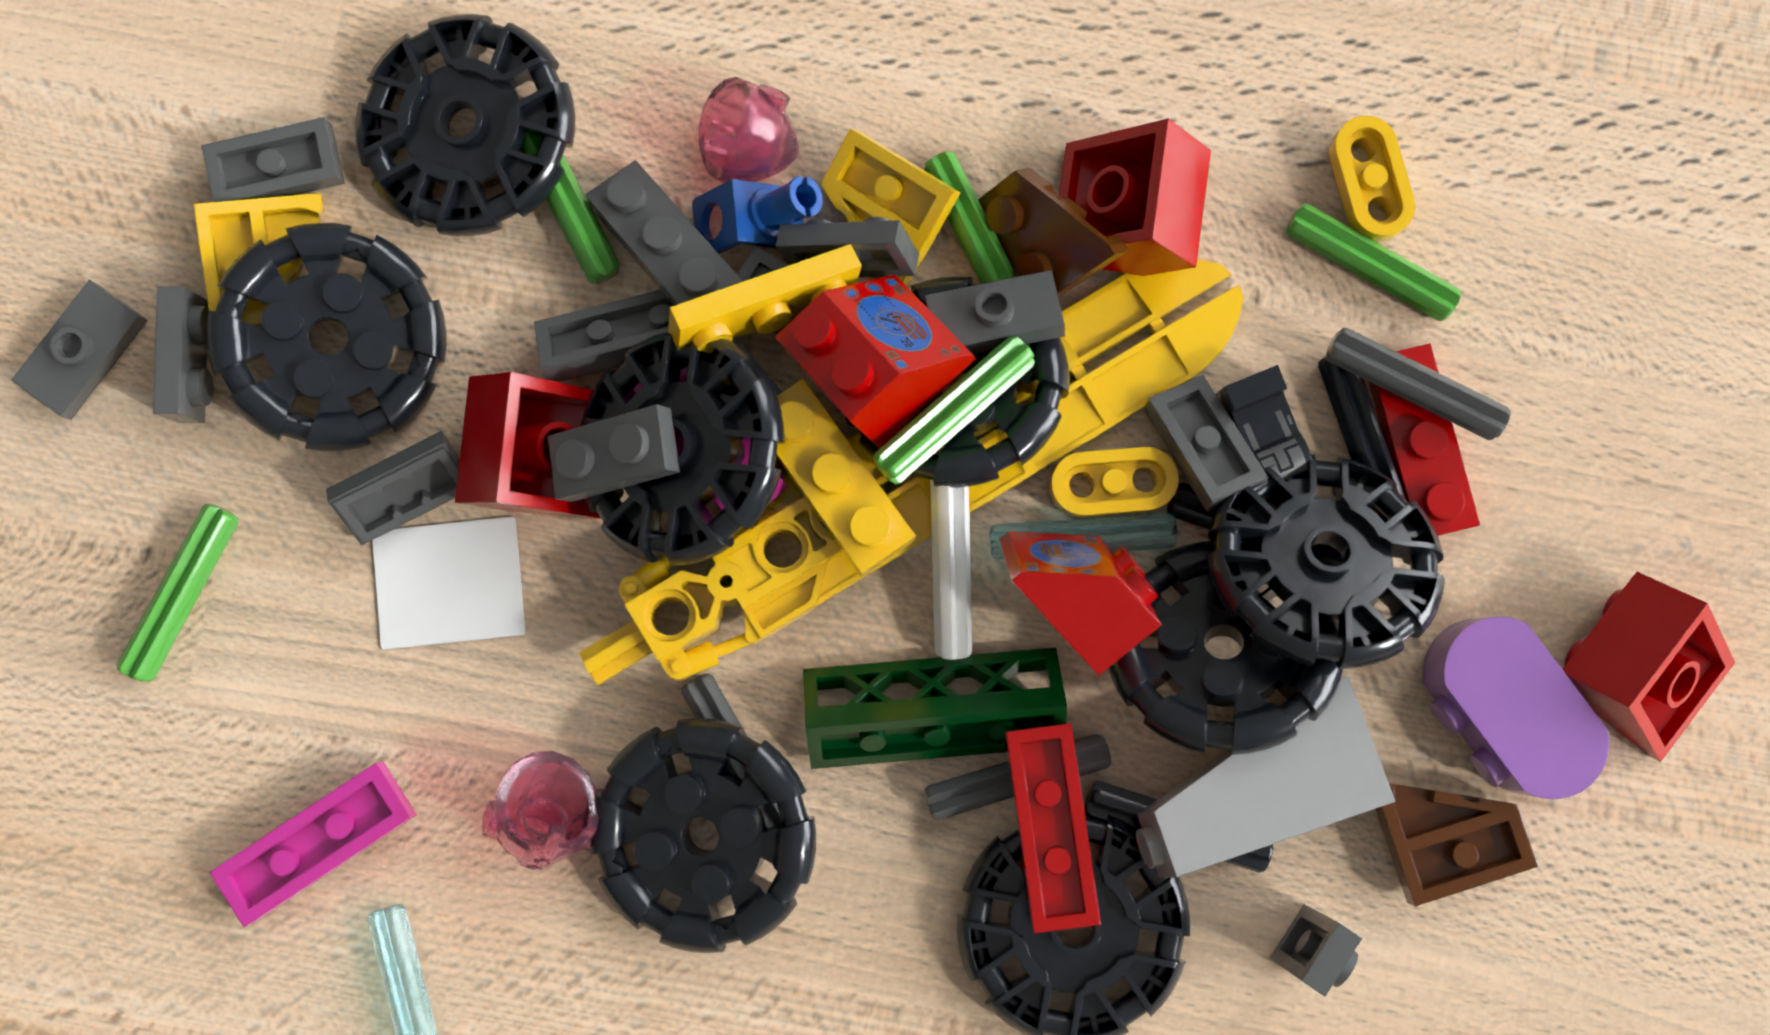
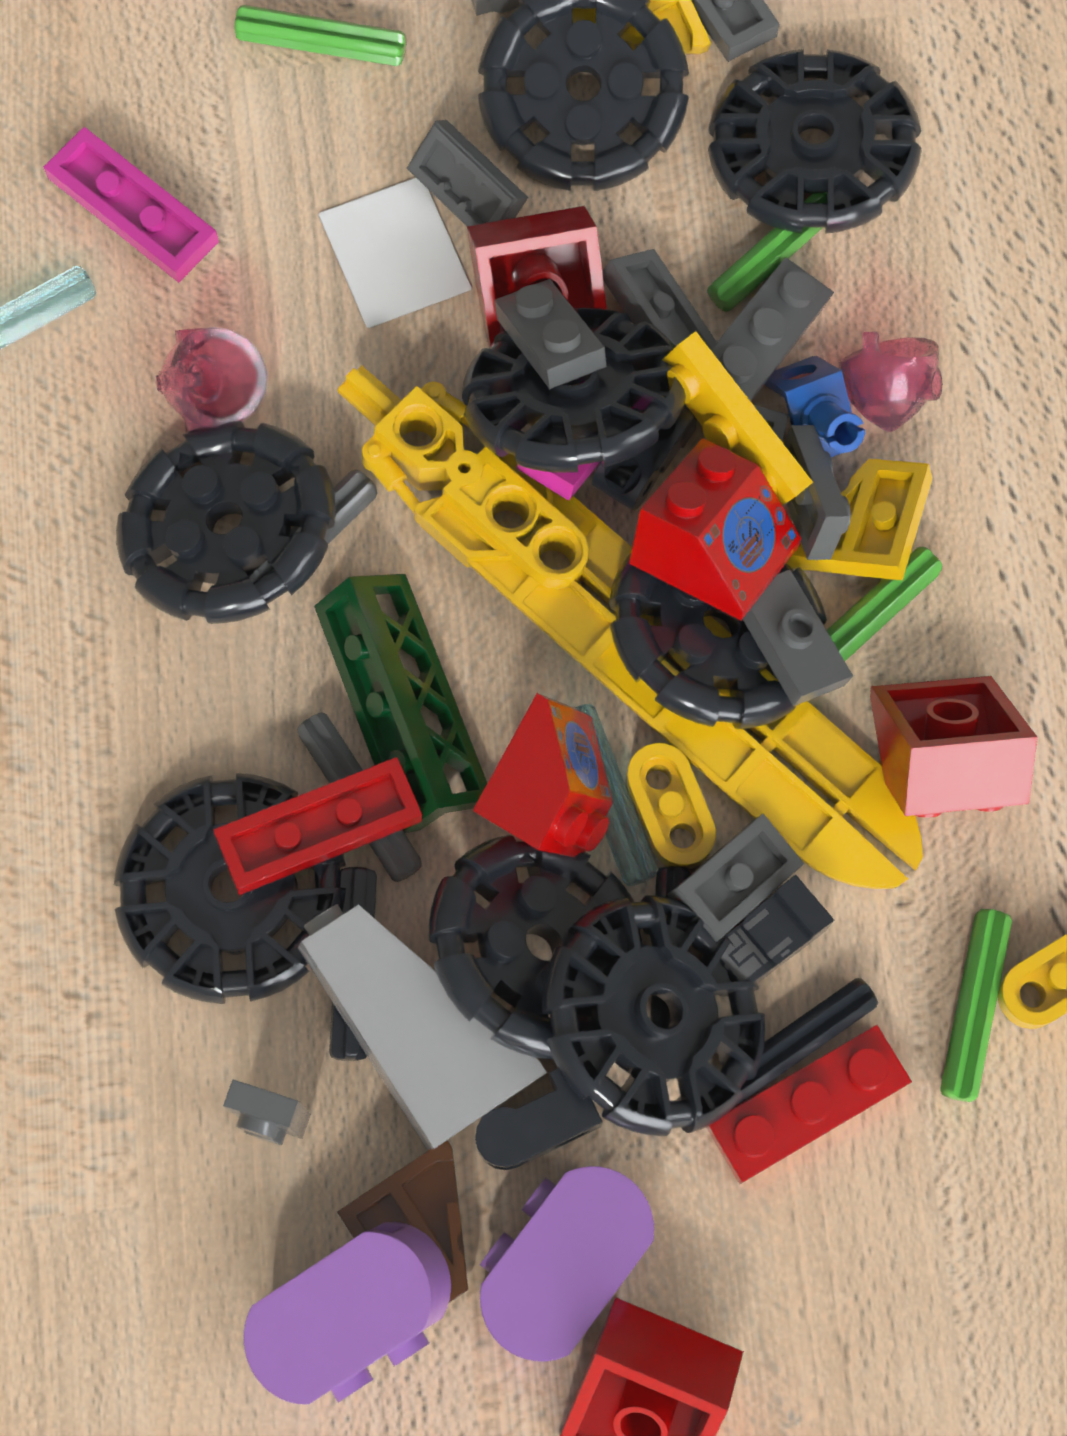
camera: 75 degrees right, 10 degrees down
(838, 483) = (584, 536): yellow plate -> none
(951, 571) = (535, 674): white axle -> none
(954, 409) = (687, 616): axle -> none
(1046, 231) = (889, 667): reddish brown wing -> none
(1389, 705) = (517, 1136): none -> black leg
(1418, 384) = (862, 1069): dark grey axle -> none
(1519, 922) = (348, 1314): none -> medium lavender brick

